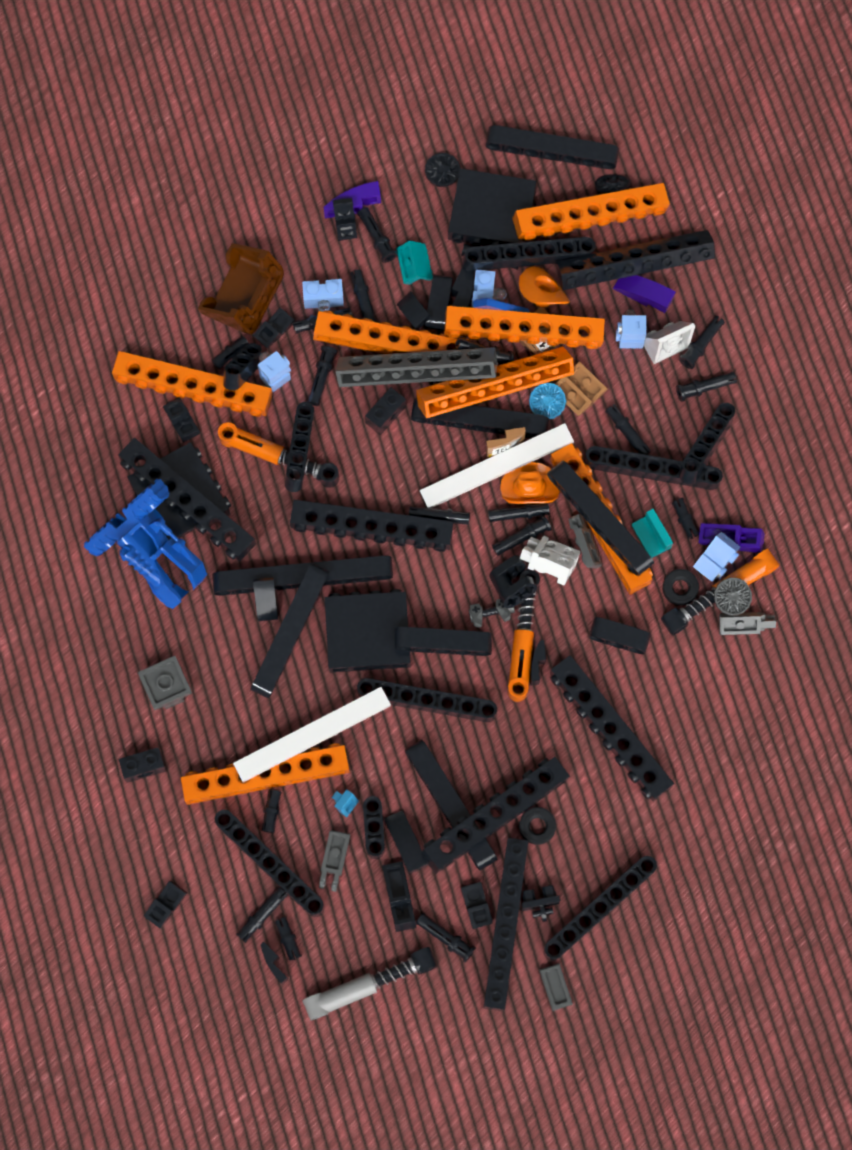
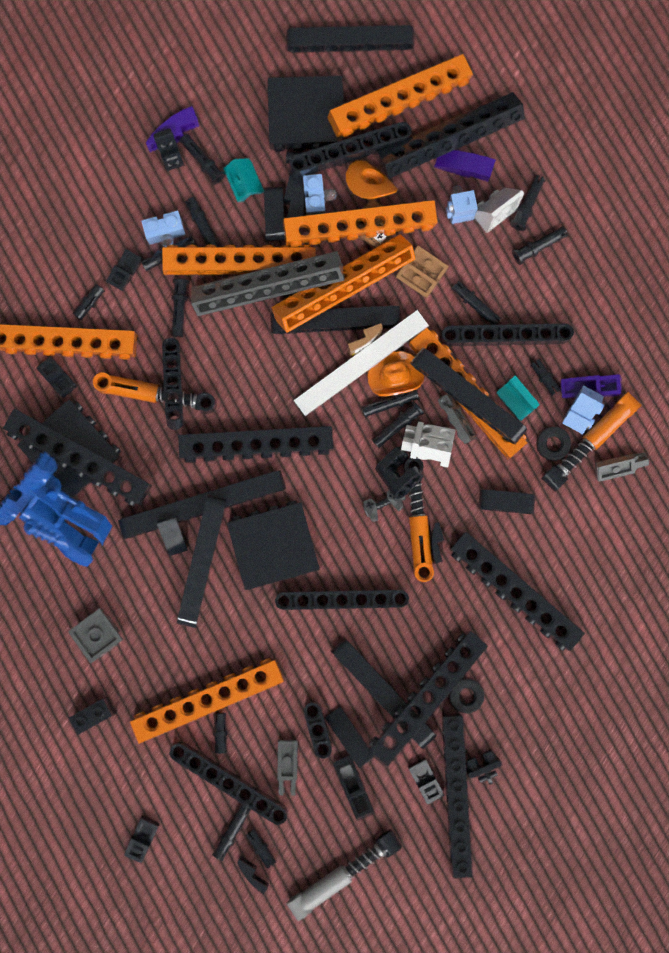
camera: 10 degrees left, 10 degrees up
(242, 366) = (102, 315): black beam -> none
(245, 290) = (89, 238): reddish brown windscreen -> none
(274, 370) = (132, 312): light blue piece -> none
(312, 734) = (242, 657): white tile -> none
(345, 803) = (286, 711): dark azure tile -> none
(385, 411) = (246, 330): black brick -> none
(414, 310) = (252, 227): black slope -> none
(442, 169) = (251, 82): black wheel -> none
(443, 641) = (345, 543): black beam -> none
(446, 515) = (317, 420): black pin -> none
(453, 945) = (413, 820): black pin -> none
(487, 303) = (330, 208): blue tile -> none
(502, 356) = (345, 255): black pin -> none
(547, 400) = (395, 289): dark azure wheel -> none
(555, 987) = (513, 841): dark grey tile -> none
(606, 899) = (538, 771): black beam -> none
(612, 183) = (414, 64): black wheel -> none
(707, 443) = (553, 309): black beam -> none
(732, 596) = (605, 445): dark grey wheel -> none

